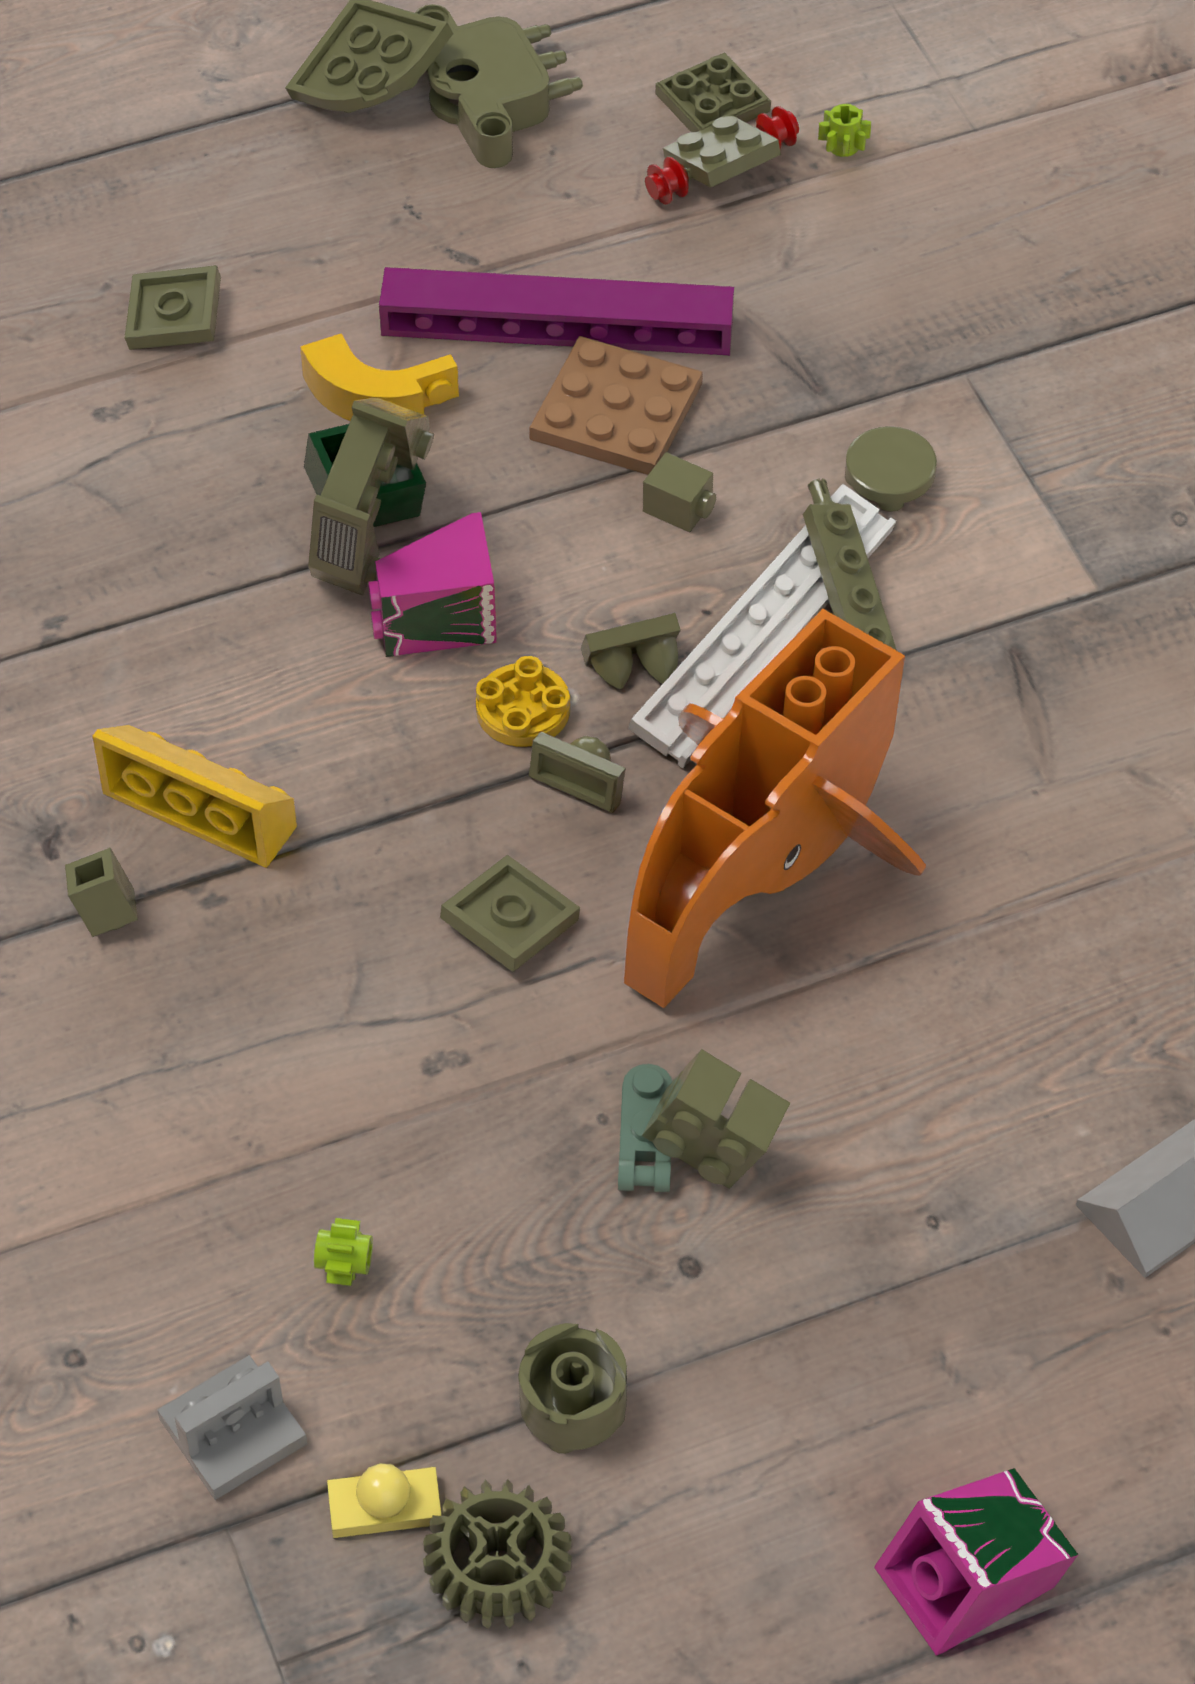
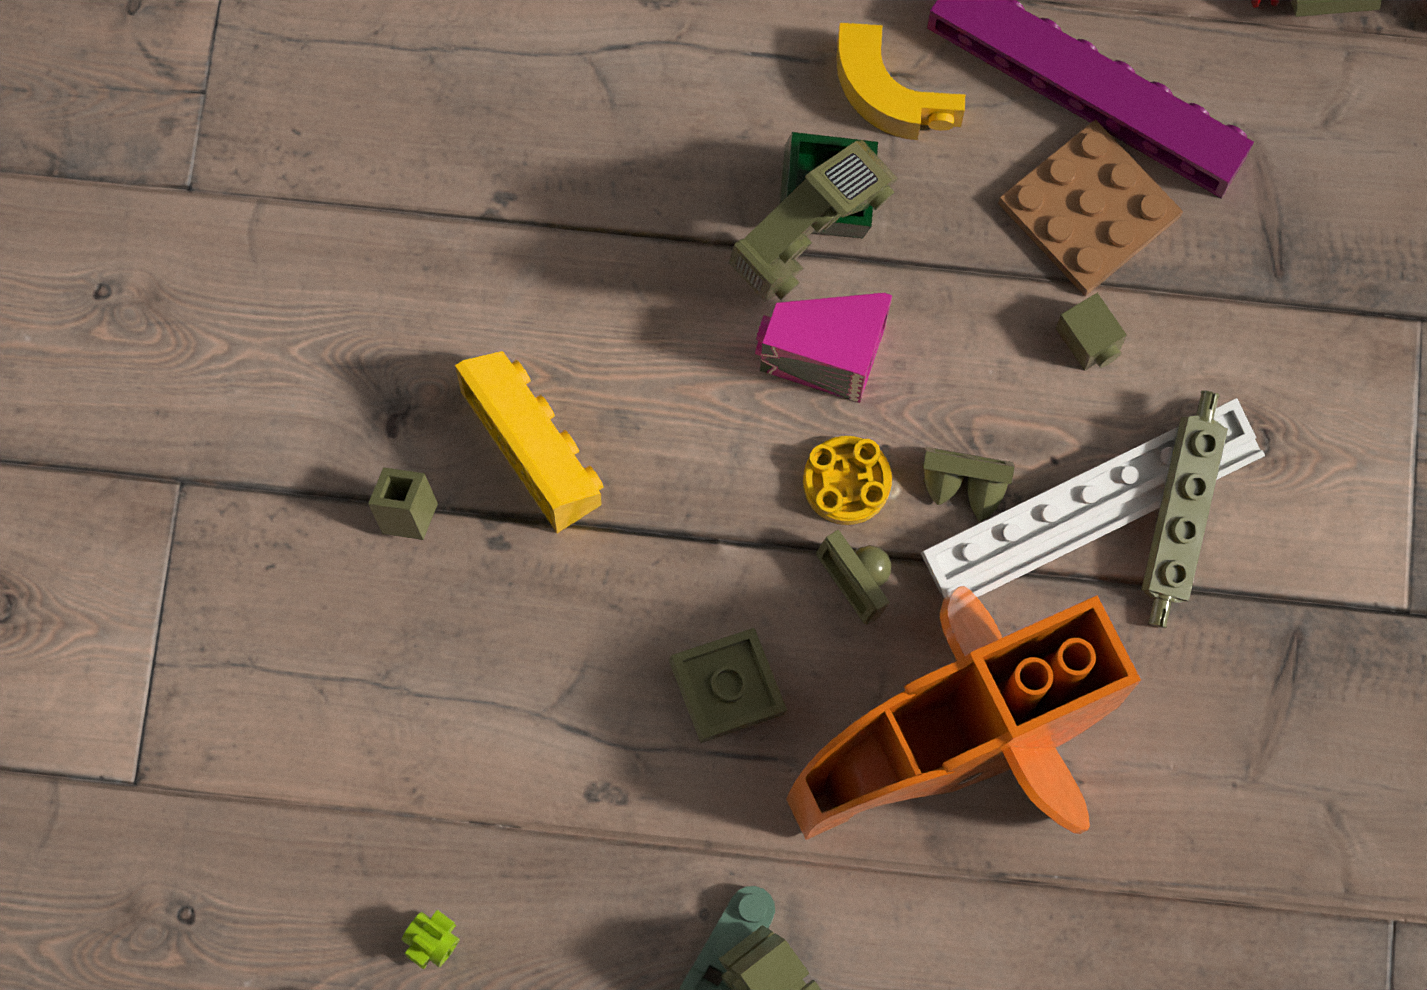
camera: 25 degrees right, 20 degrees up
(890, 466) = (1294, 393): olive tile -> none

